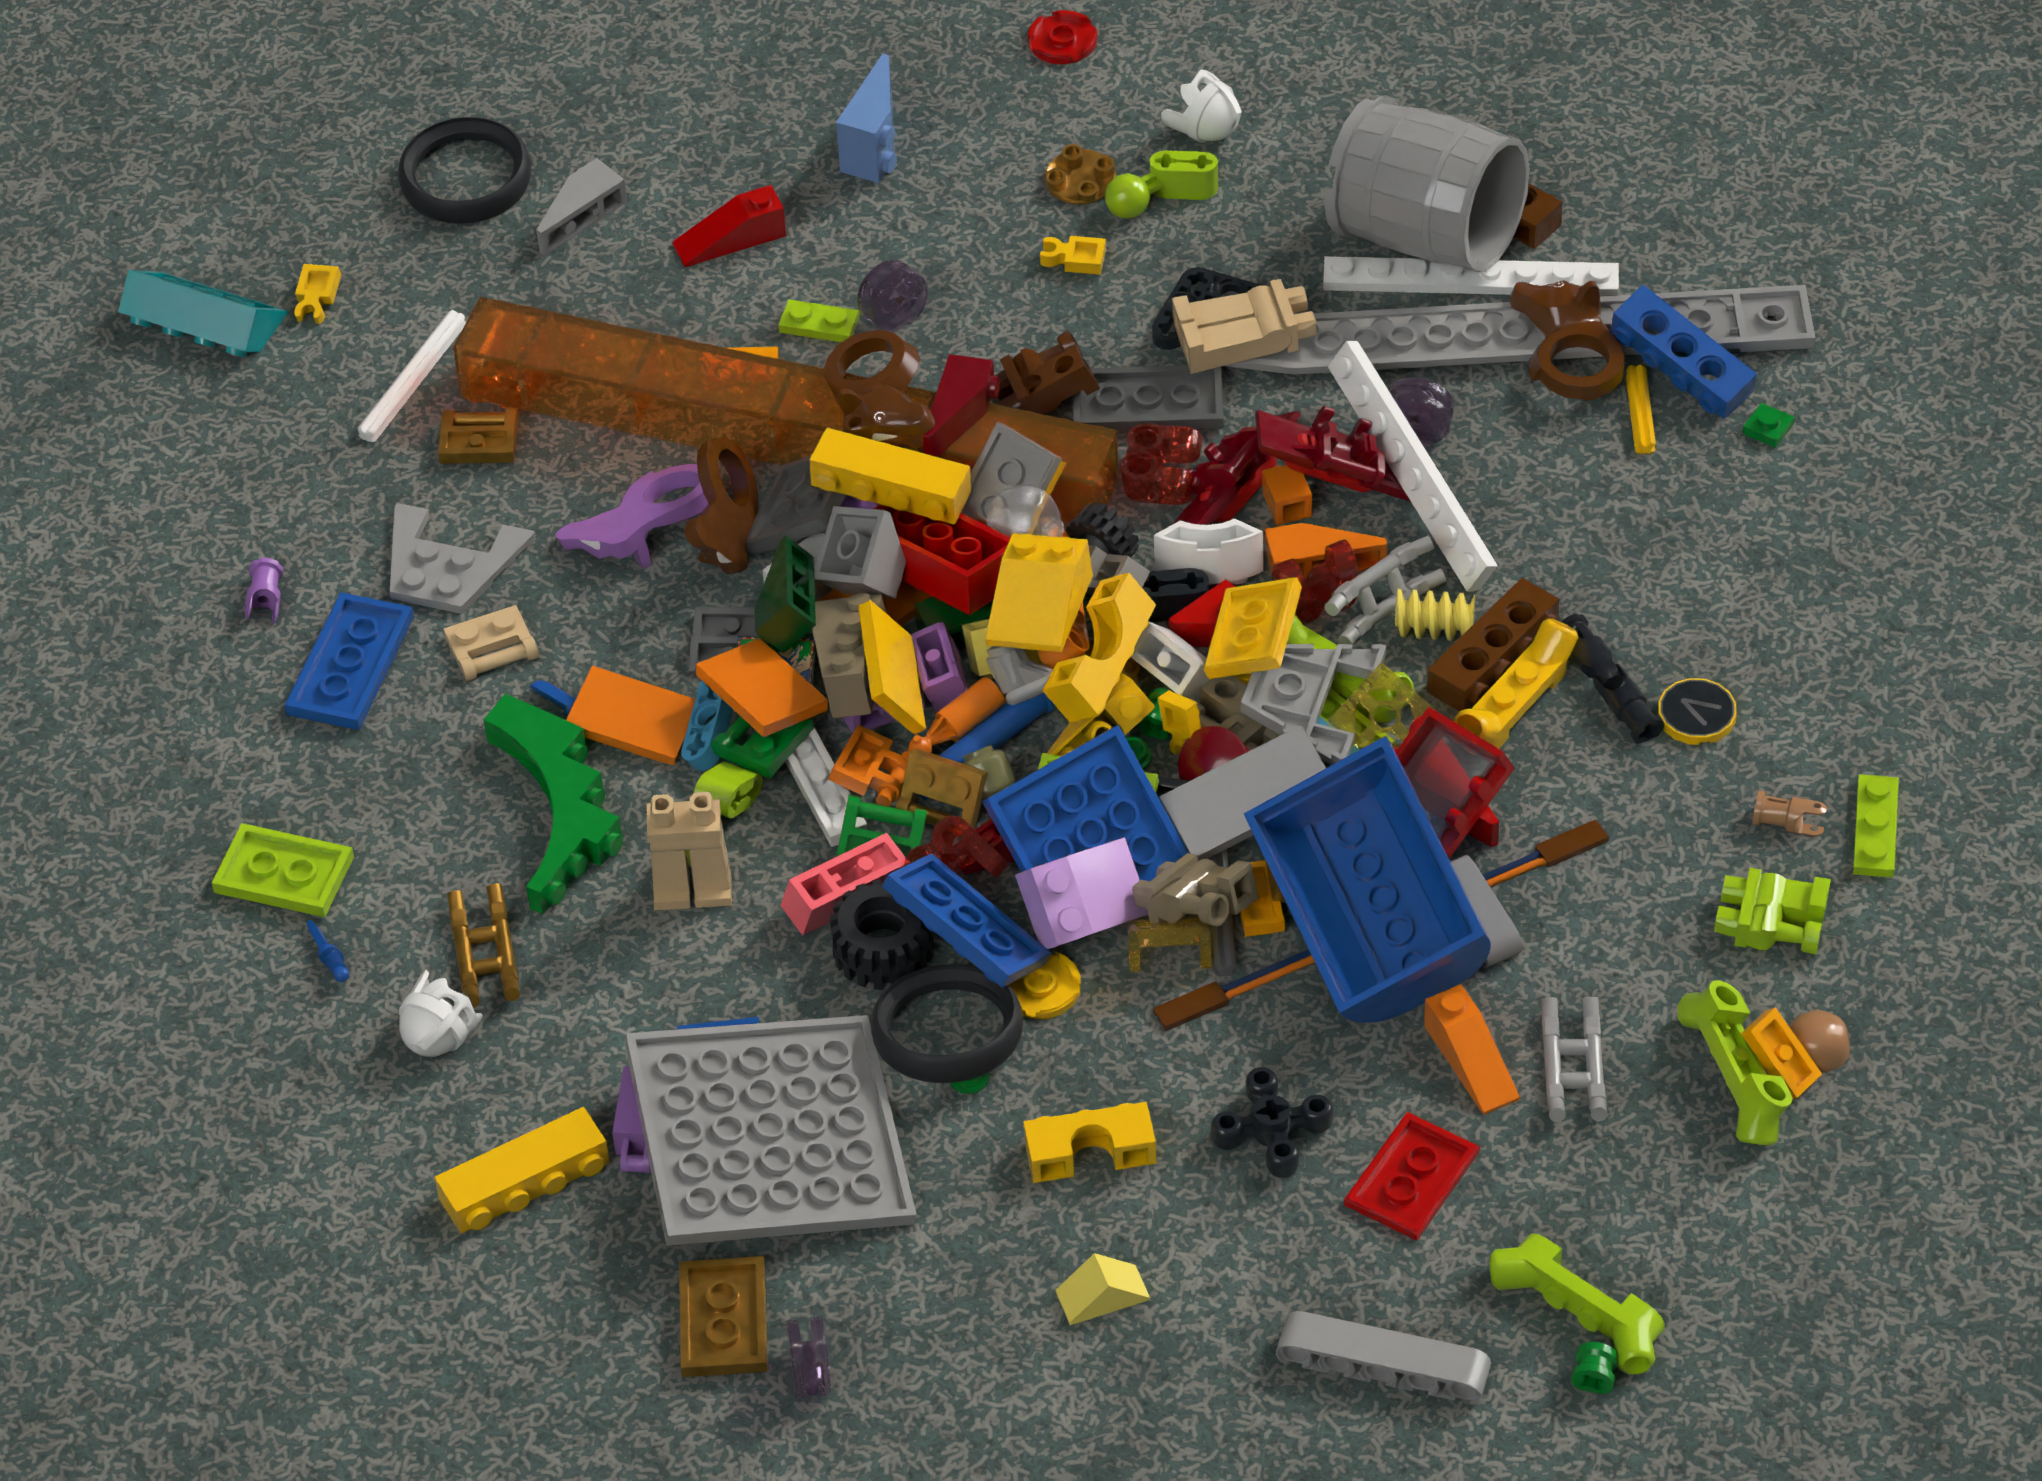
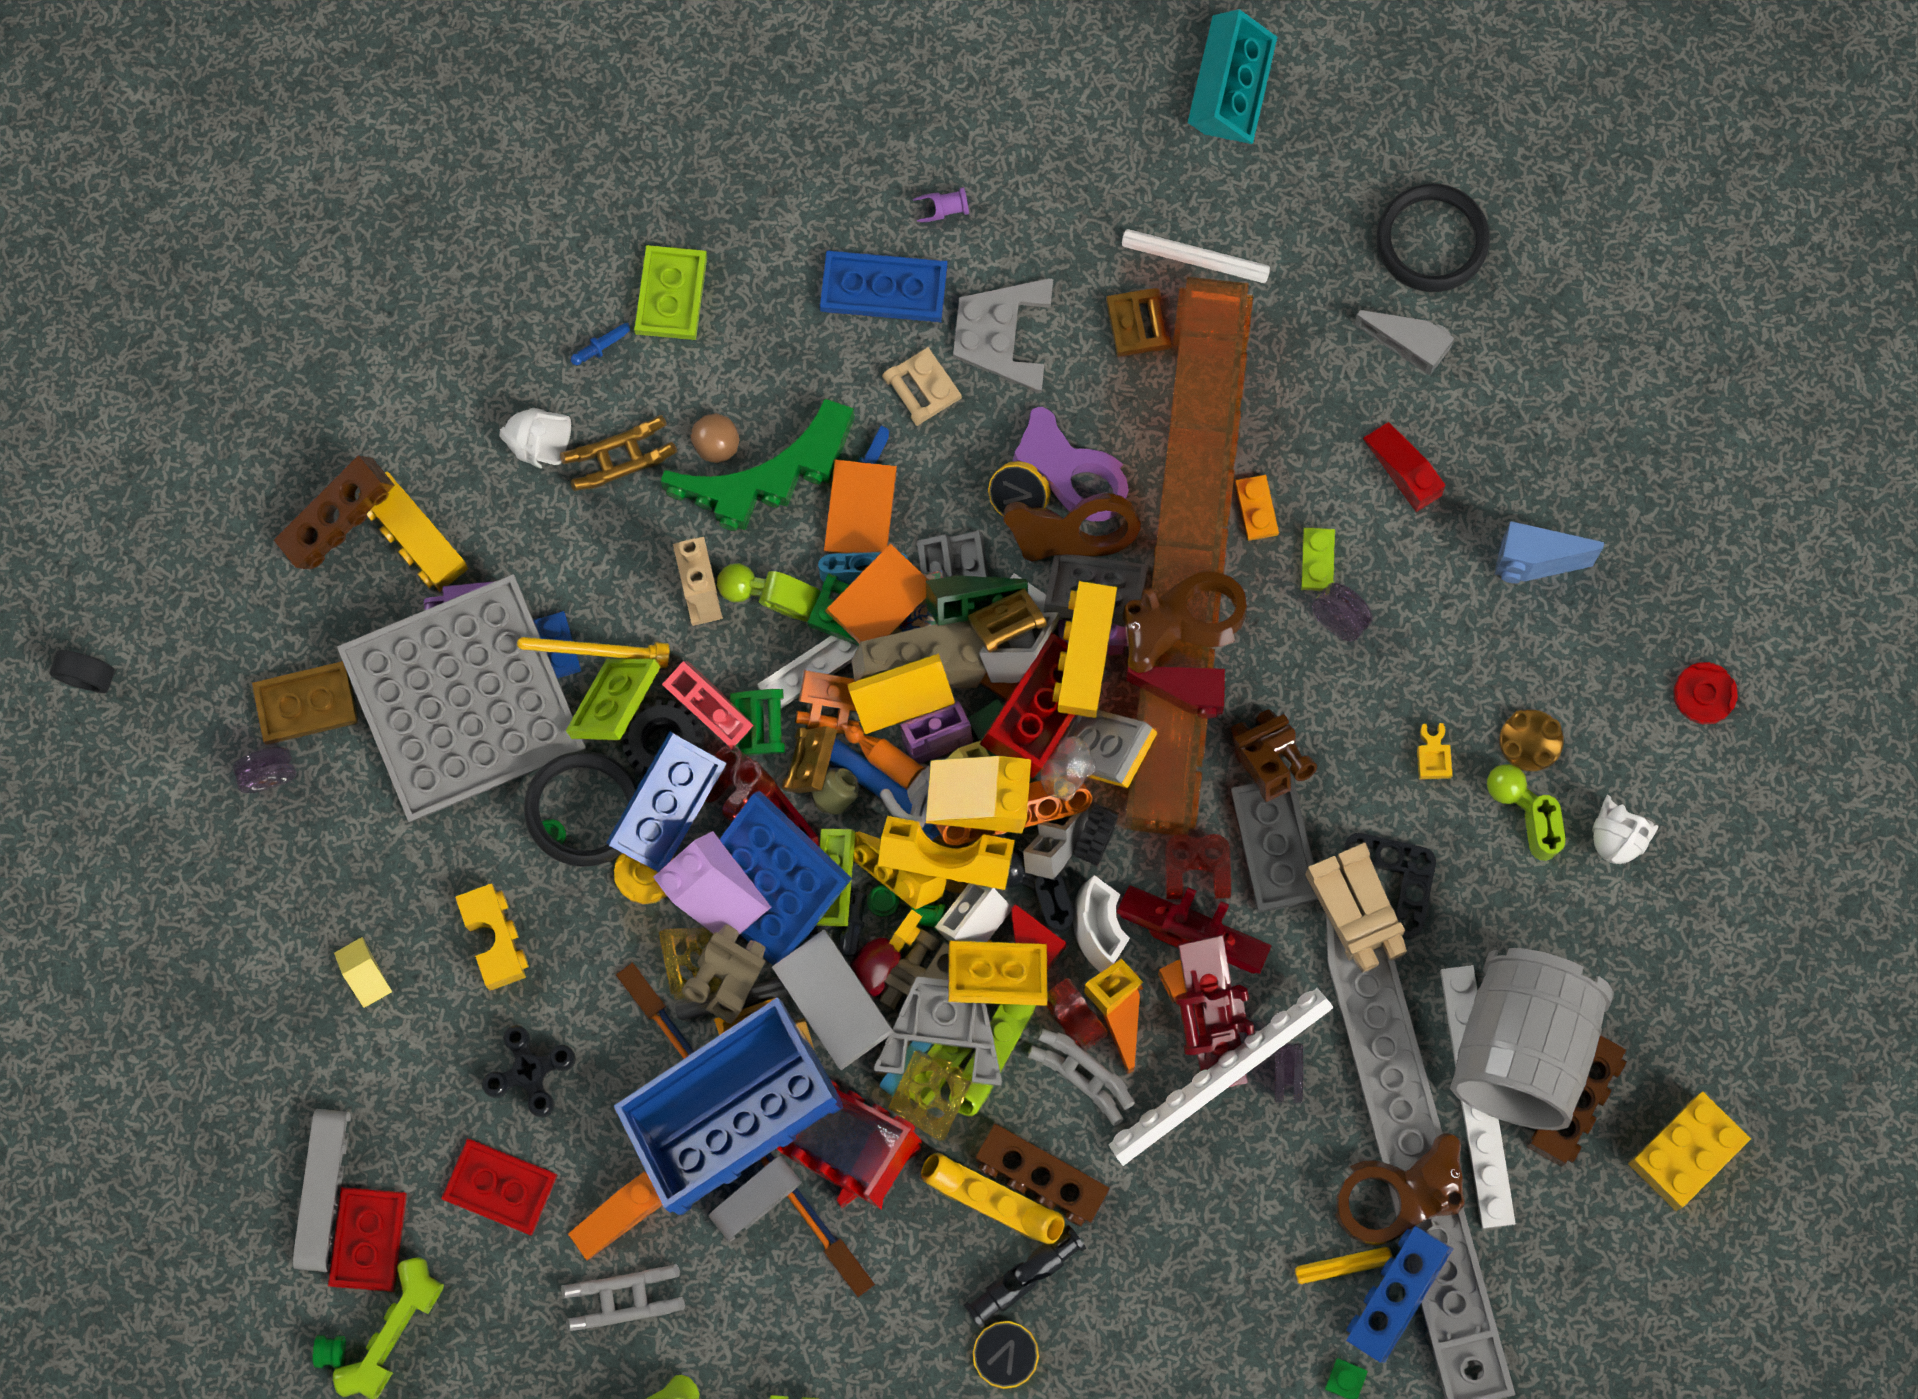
camera: 80 degrees right, 25 degrees up
(316, 287) = (1275, 158): yellow plate -> none
(492, 849) = (715, 438): none -> medium nougat hair
(494, 1295) = (297, 537): none -> reddish brown brick
(660, 557) = (1018, 483): none -> black tile
(762, 936) = (658, 651): none -> yellow piece
(815, 966) = (613, 699): none -> lime plate
(819, 556) = (1006, 619): none -> pearl gold plate
(1294, 537) = (1112, 986): none -> yellow slope
(1433, 615) = (1064, 1120): light yellow piece -> none
(1459, 1316) = (367, 1239): none -> red tile
(1565, 114) = (1689, 1151): none -> yellow brick

